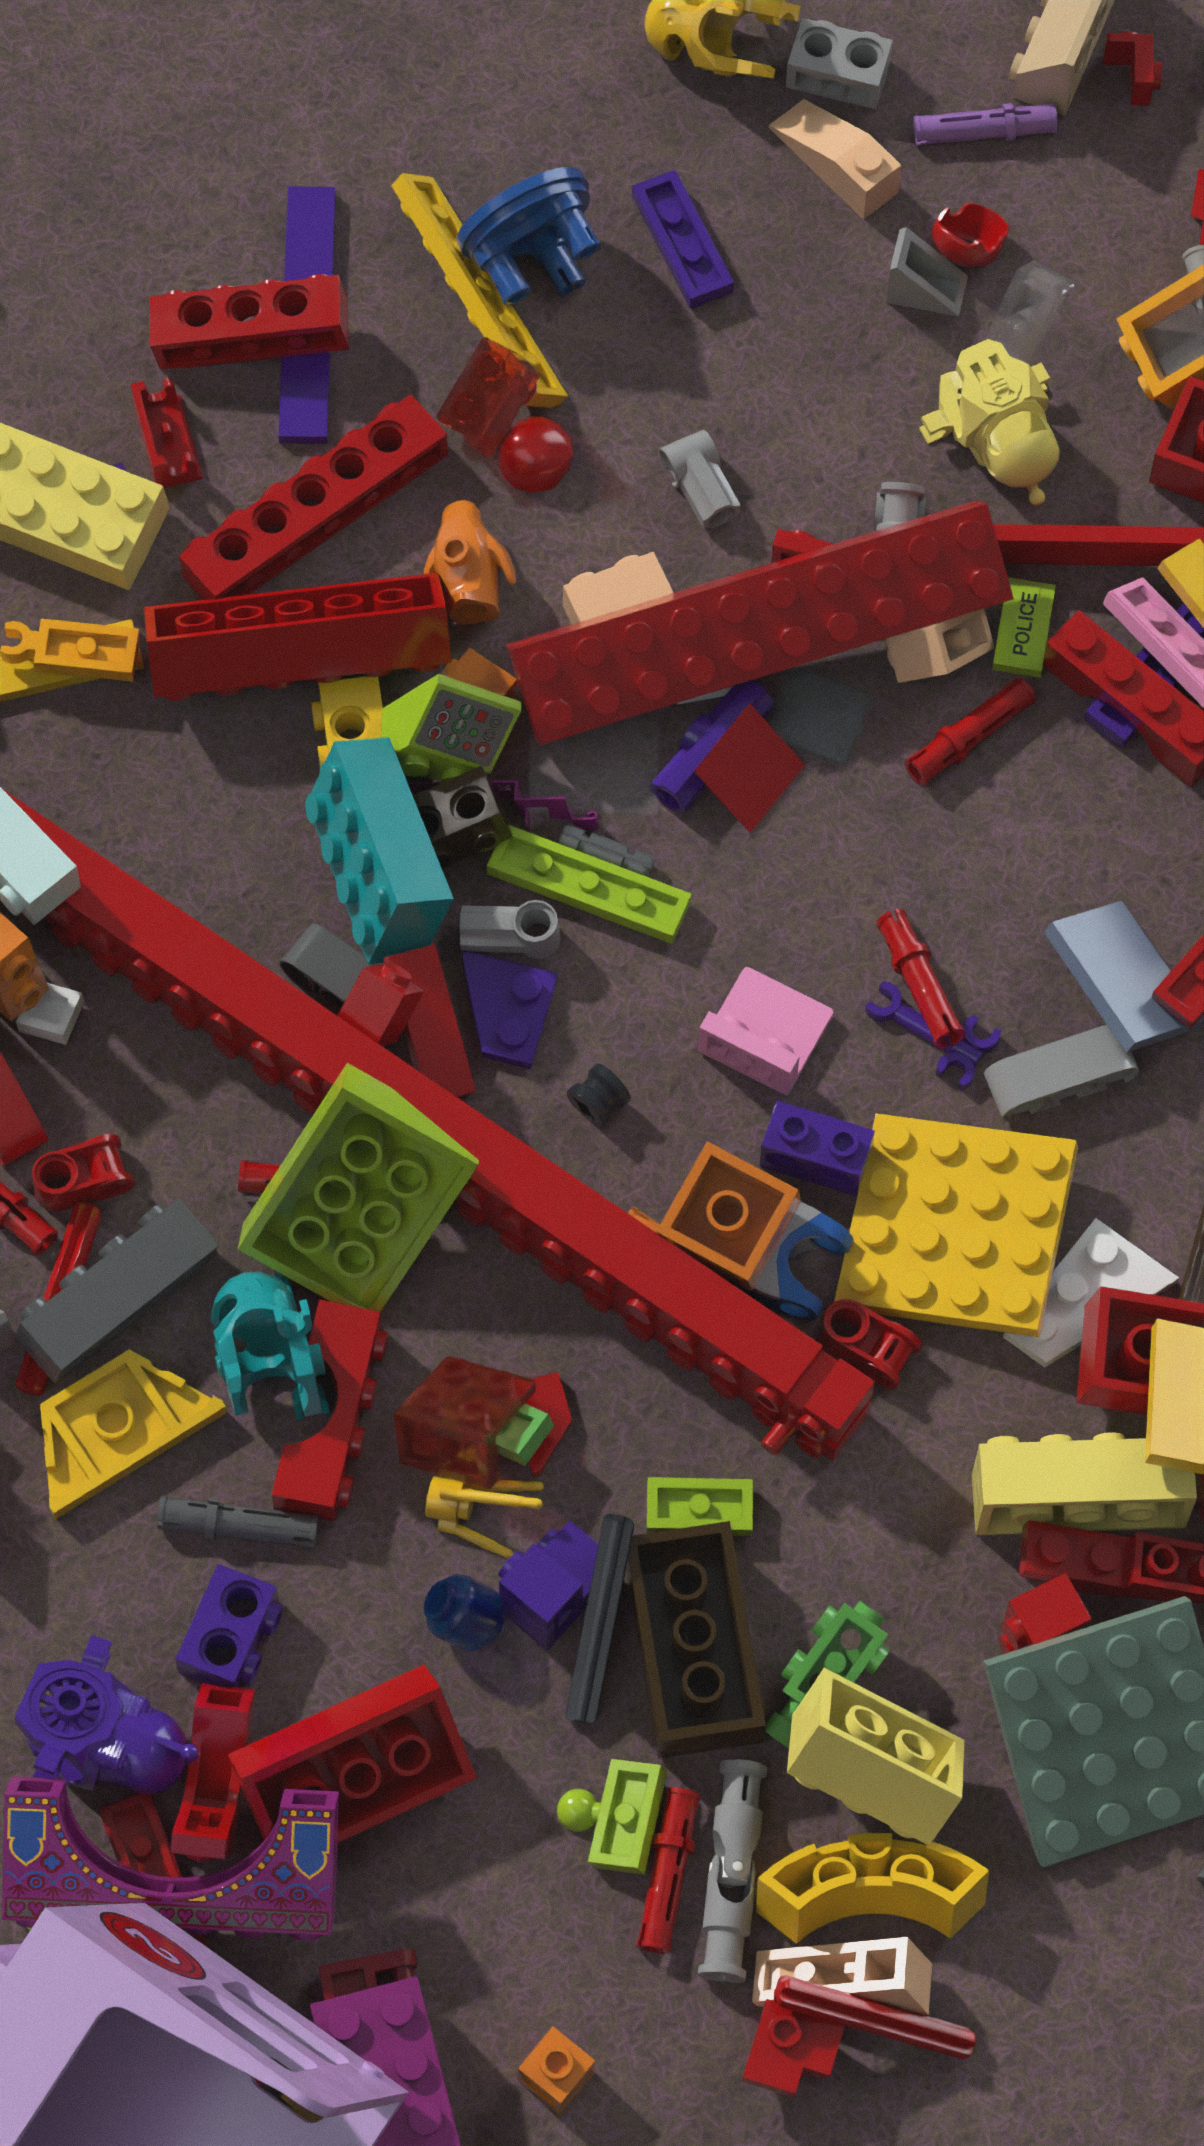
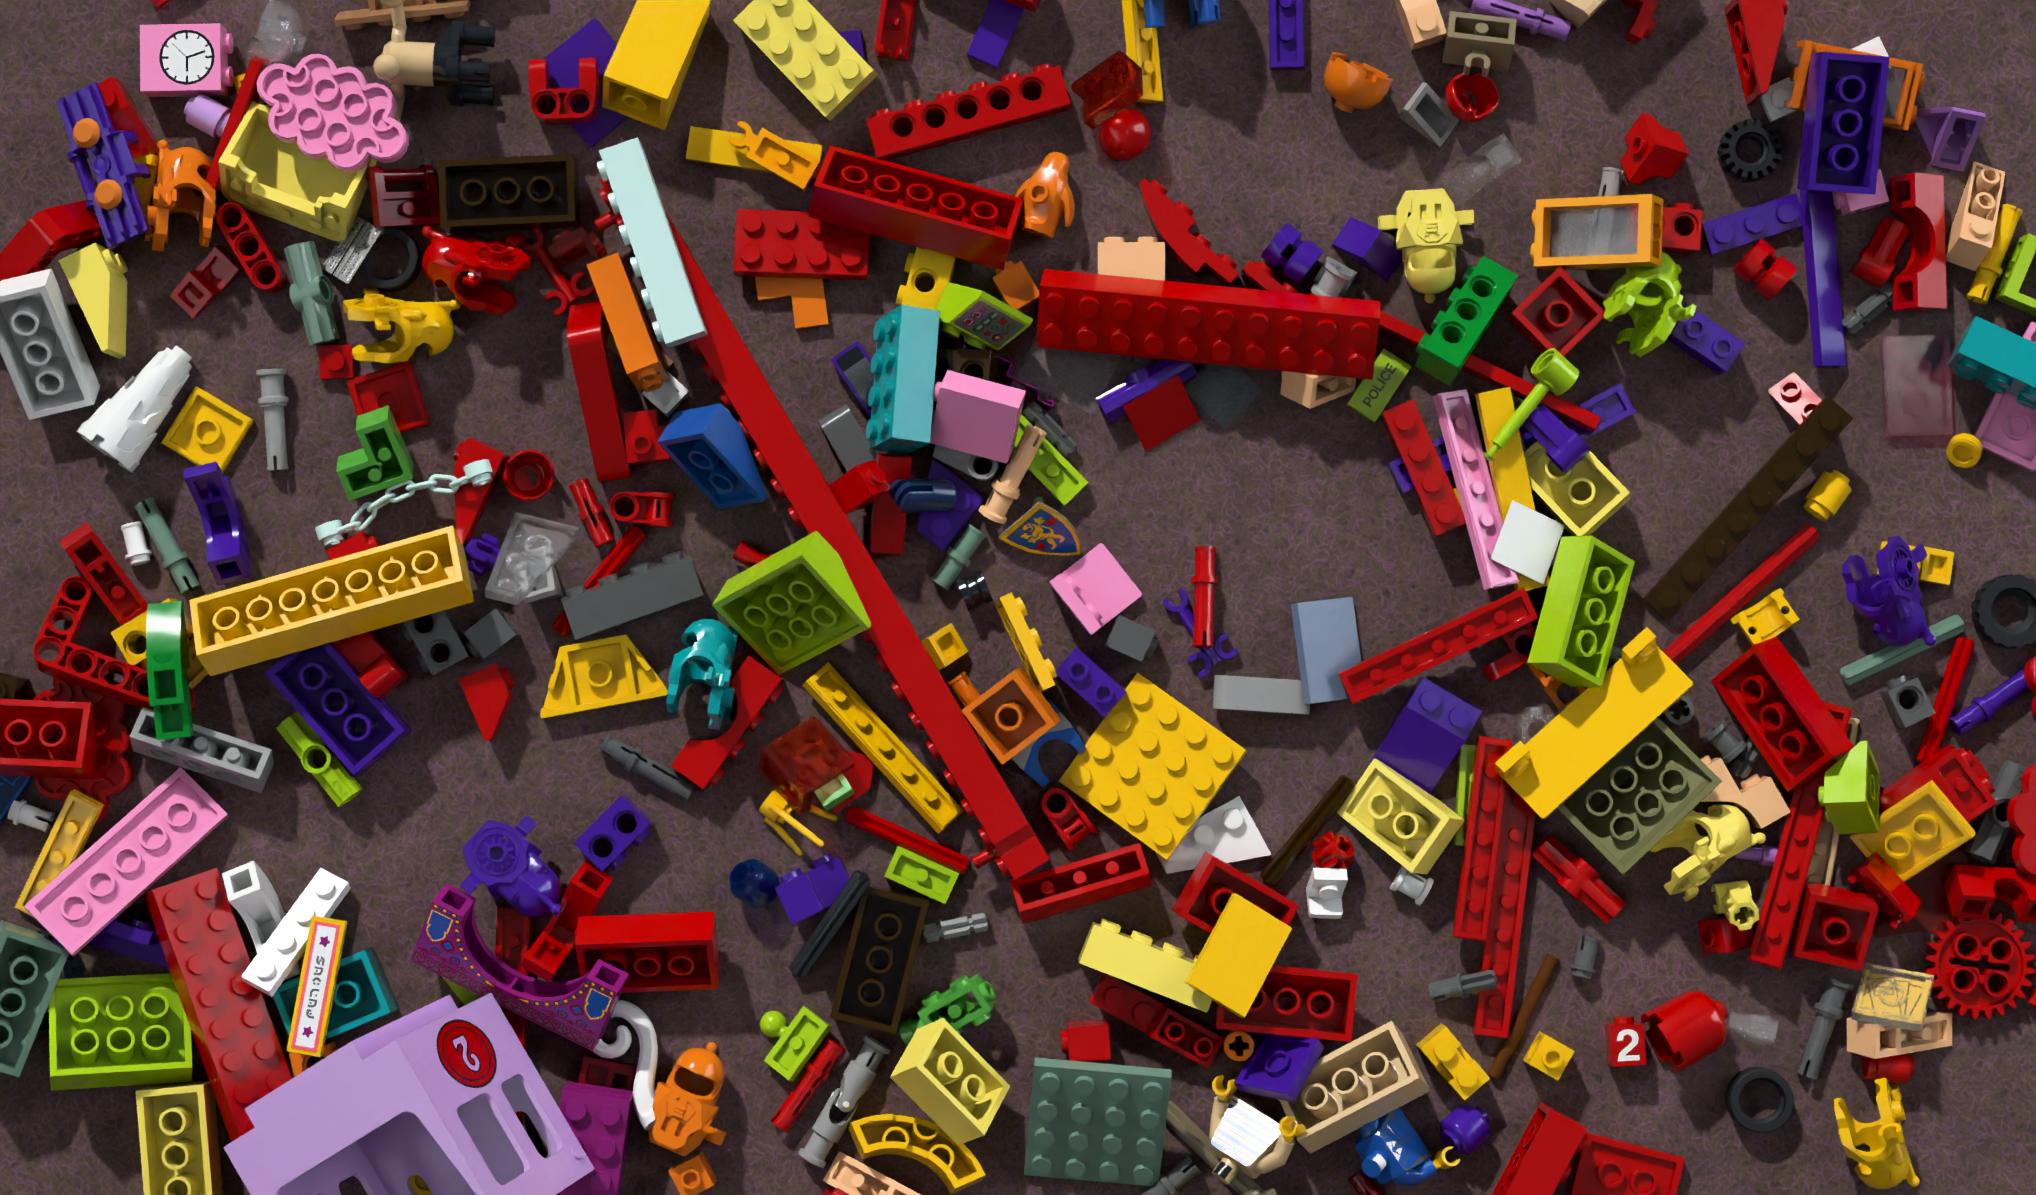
camera: 25 degrees right, 20 degrees up
(53, 1076) = (641, 438): none -> red brick
(157, 753) = (797, 247): none -> red plate
(158, 1050) = (714, 455): none -> blue slope
(177, 802) = (806, 296): none -> orange tile
(309, 881) = (856, 371): none -> slope
(439, 1983) = (645, 1074): none -> white plant
(473, 986) = (923, 495): none -> dark blue arm
(498, 1966) = (688, 1102): none -> orange helmet
(501, 853) = (976, 416): none -> bright pink brick
(556, 1062) = (958, 557): none -> sand green pin
(566, 1356) = (883, 747): none -> yellow tile
(582, 943) = (1006, 487): none -> light nougat pin
(597, 1176) = (944, 646): none -> yellow plate
(636, 1468) = (906, 839): none -> red axle
(655, 526) = (1173, 225): none -> red slope
(660, 978) = (1043, 531): none -> shield
(694, 1116) = (1026, 641): none -> yellow plate
(697, 472) = (1220, 193): light grey piece -> none
(783, 1561) = (955, 927): none -> light grey axle
(810, 273) = (1354, 83): none -> orange cylinder
(846, 509) = (1300, 262): none -> dark purple wheel
(847, 1071) = (1131, 639): none -> dark grey brick
(929, 460) = (1369, 248): none -> dark purple slope
(931, 1418) = (1081, 883): none -> red brick
(948, 165) = (1479, 41): none -> dark tan brick
(955, 742) = (1304, 445): red pin -> none
(1097, 487) = (1465, 321): none -> green brick

